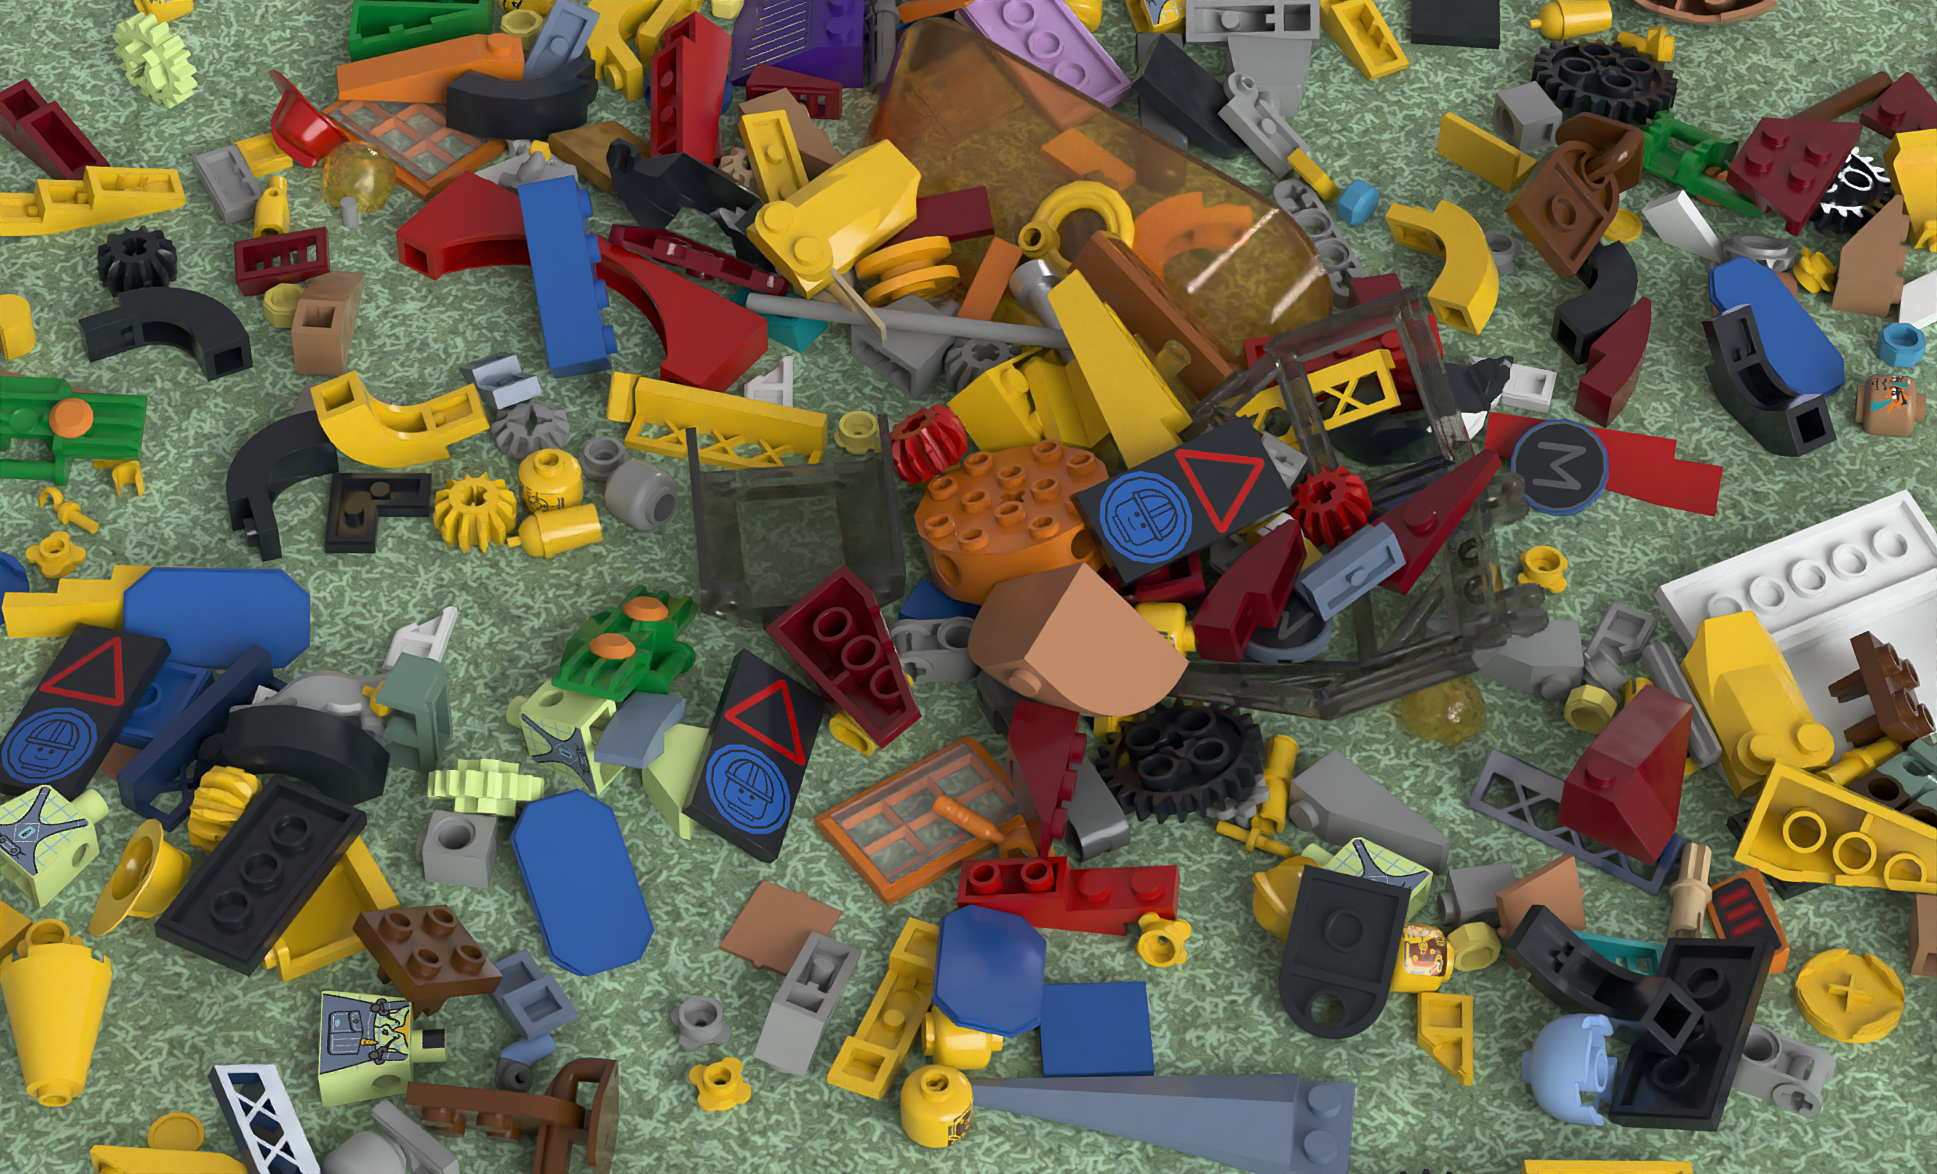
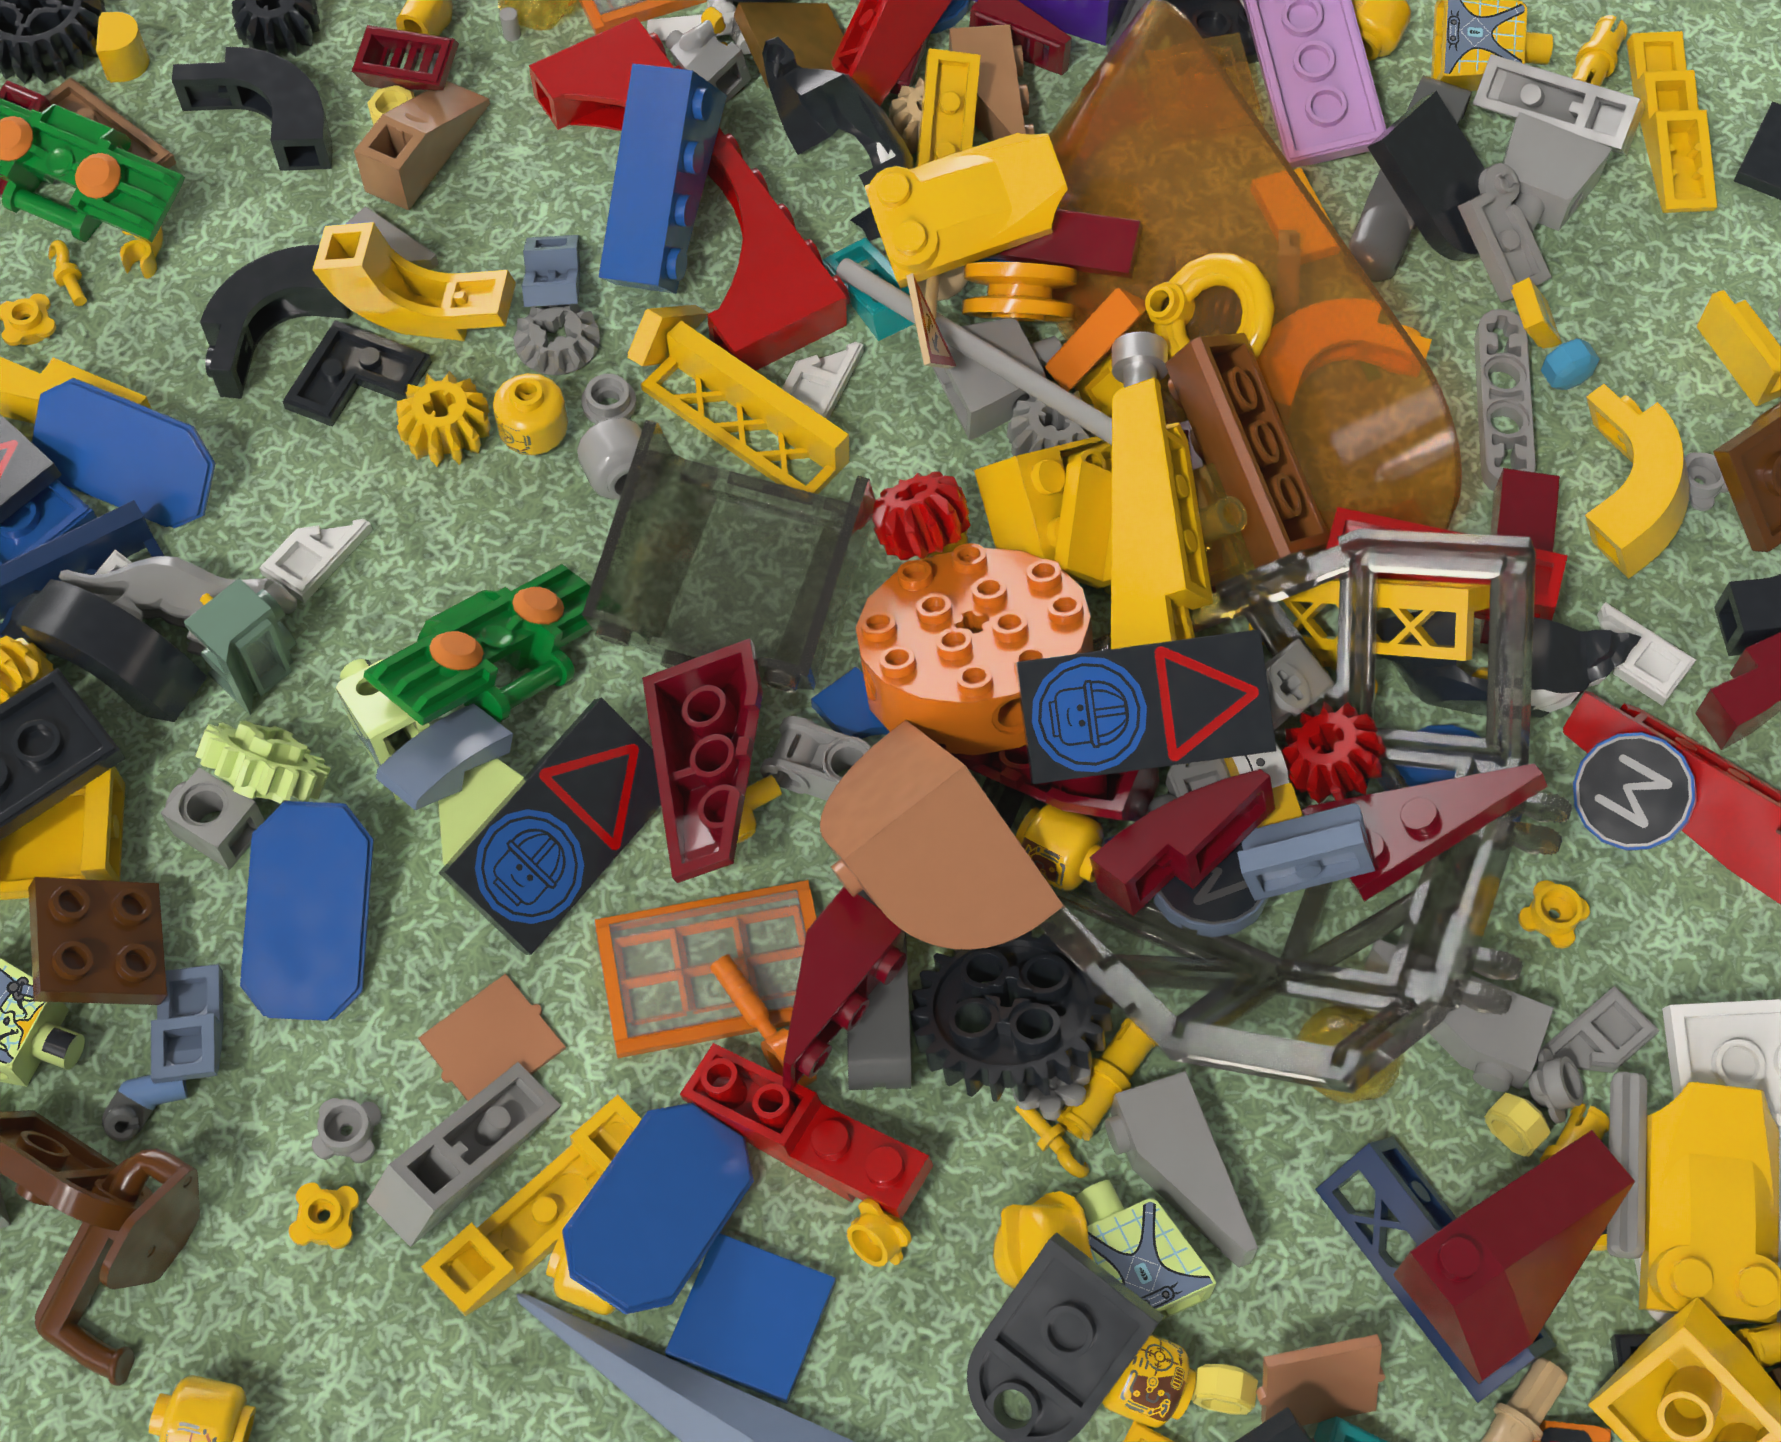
camera: 25 degrees right, 15 degrees up
(558, 531) = (515, 470): yellow piece -> none
(698, 258) = (815, 189): dark red wing -> none
(856, 432) = (883, 450): light yellow plate -> none
(936, 1106) = (525, 1371): yellow head -> none
(1471, 894) = (1258, 1327): light grey brick -> none

